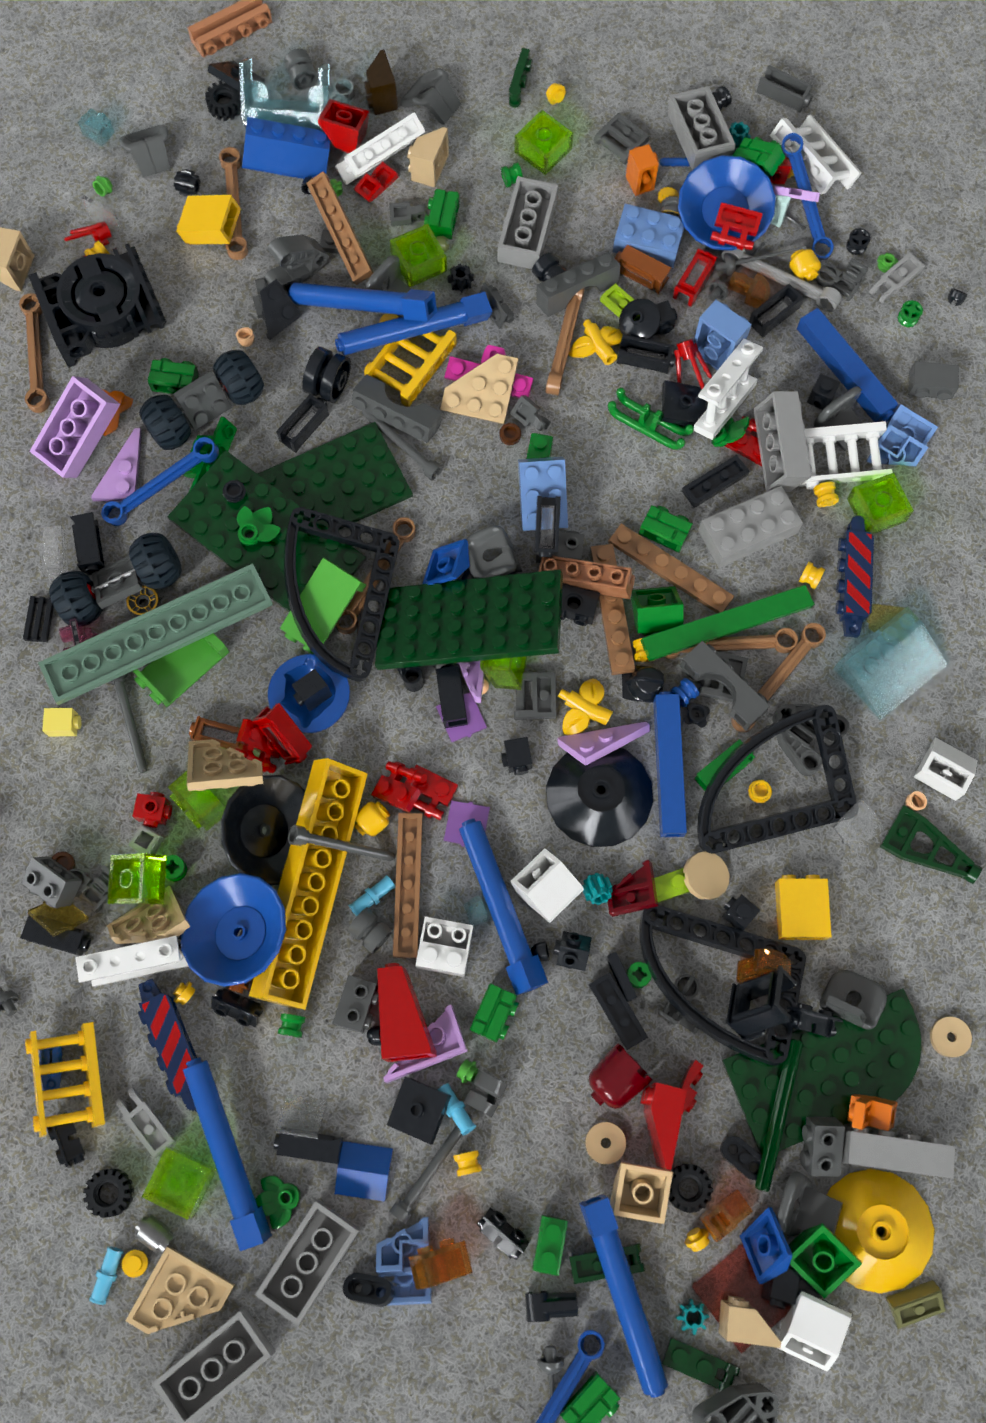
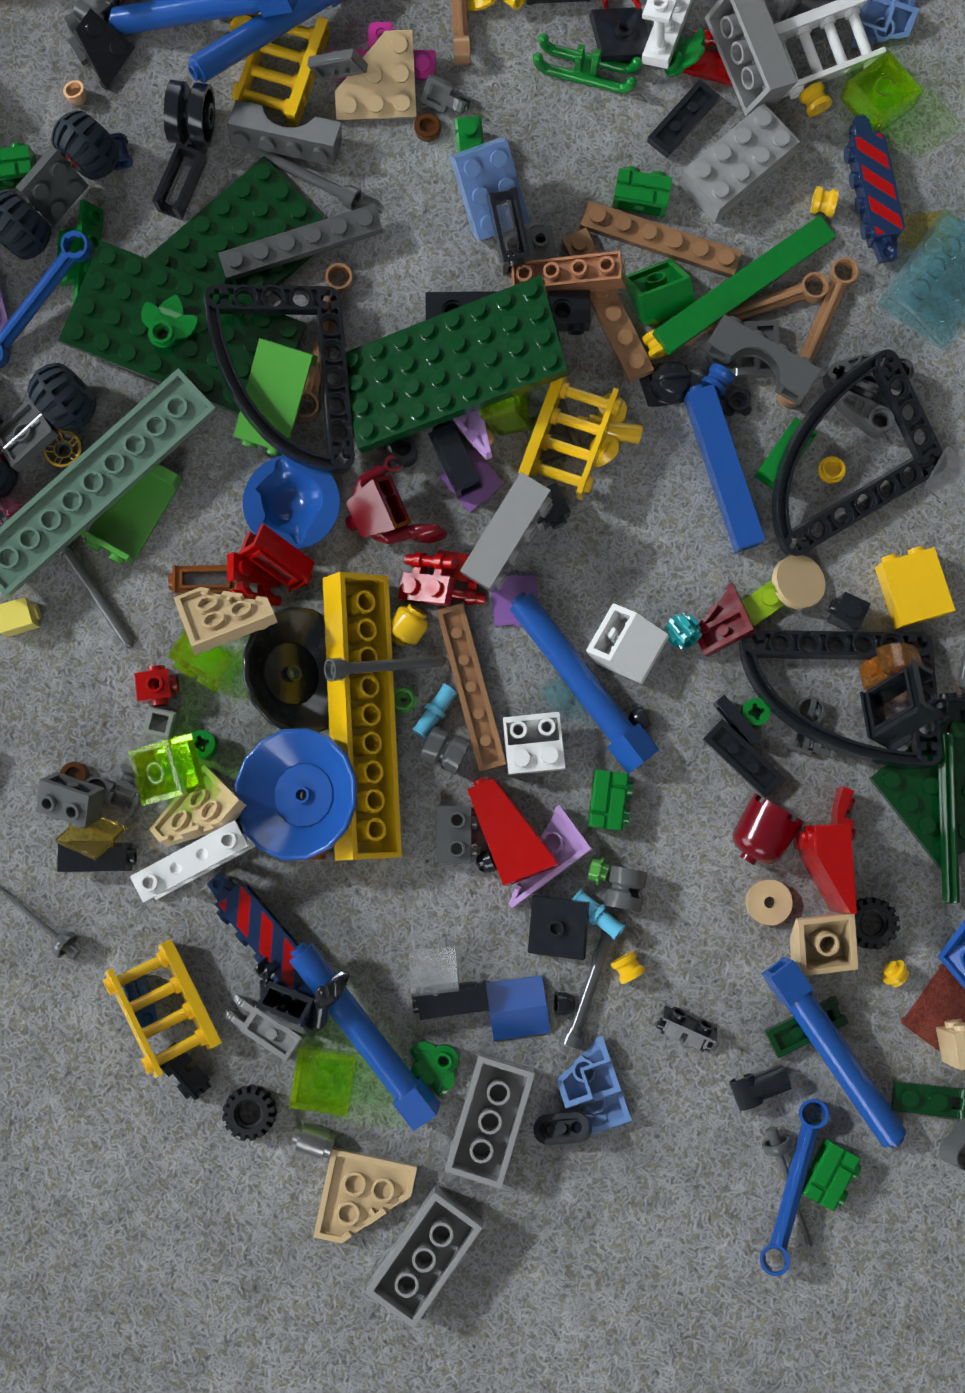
camera: 15 degrees left, 10 degrees up
(106, 1275) = (276, 1197): medium azure pin -> none
(134, 1263) = (302, 1175): yellow plate -> none
(175, 1113) = (295, 1009): none -> black torso
(183, 992) = (260, 877): yellow plate -> none
(226, 1005) = (310, 876): black hinge -> none
(234, 491) = (128, 287): black plate -> none
(266, 395) = (125, 159): none -> dark blue bush
(291, 1025) = (390, 878): green wheel -> none
(311, 690) = (294, 498): black brick -> none
(355, 882) = (411, 700): none -> bright green plate
(377, 720) = (380, 513): none -> dark red torso
(381, 494) = (300, 242): none -> dark grey plate
(404, 1178) = (565, 1004): none -> black hinge
(440, 1264) = (632, 1080): clear orange brick -> none
(447, 563) = (403, 304): blue slope -> none
(452, 369) = (337, 64): none -> dark grey plate
(473, 766) = (507, 532): none -> light grey brick
(491, 538) = (436, 266): dark grey piece -> none
(539, 681) = (542, 440): none -> yellow fence
(549, 1245) = (741, 1025): green brick -> none
(572, 950) = (676, 707): black brick -> none
(595, 744) = (636, 467): lavender wing -> none
(597, 817) = (647, 550): black dish -> none
(694, 1325) = (921, 1056): teal gear -> none
(725, 1215) = (918, 941): clear orange brick -> none
(743, 1156) = (919, 874): black plate -> none

